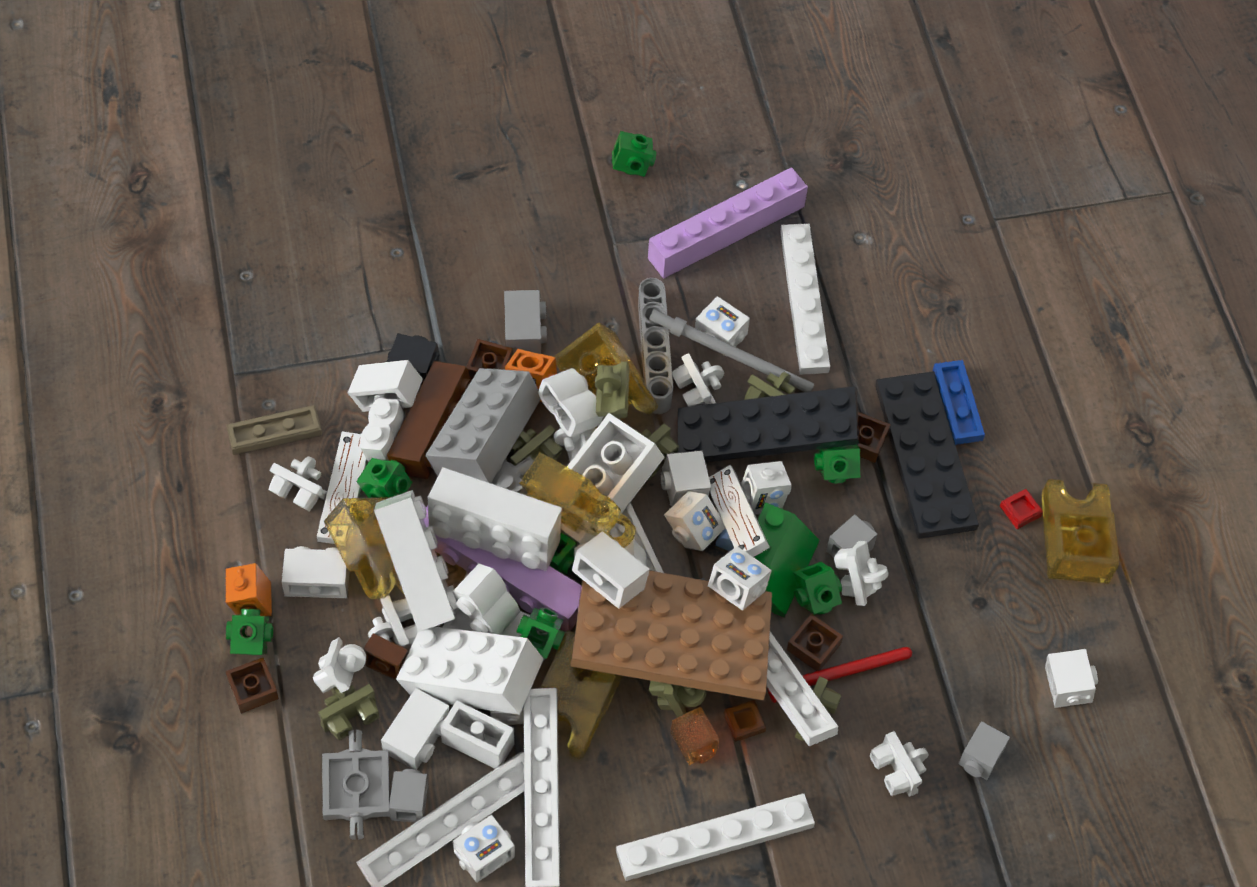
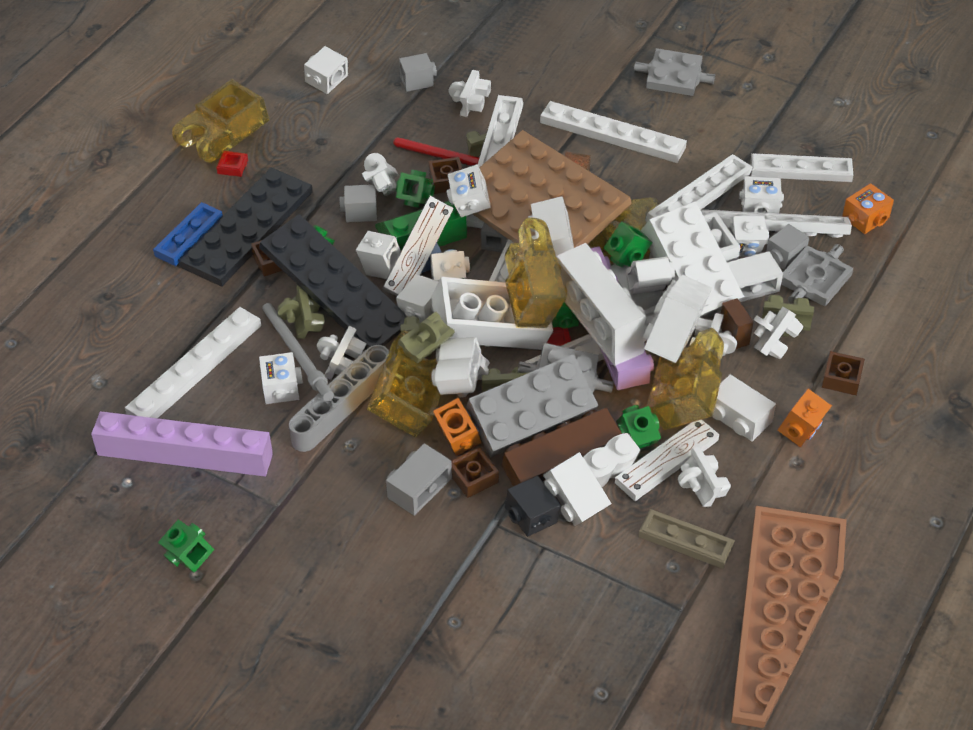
camera: 135 degrees left, 10 degrees down
(161, 442) = (789, 582): none -> nougat wing
(237, 632) = (828, 388): green brick -> none
(452, 766) = (749, 233): none -> white head

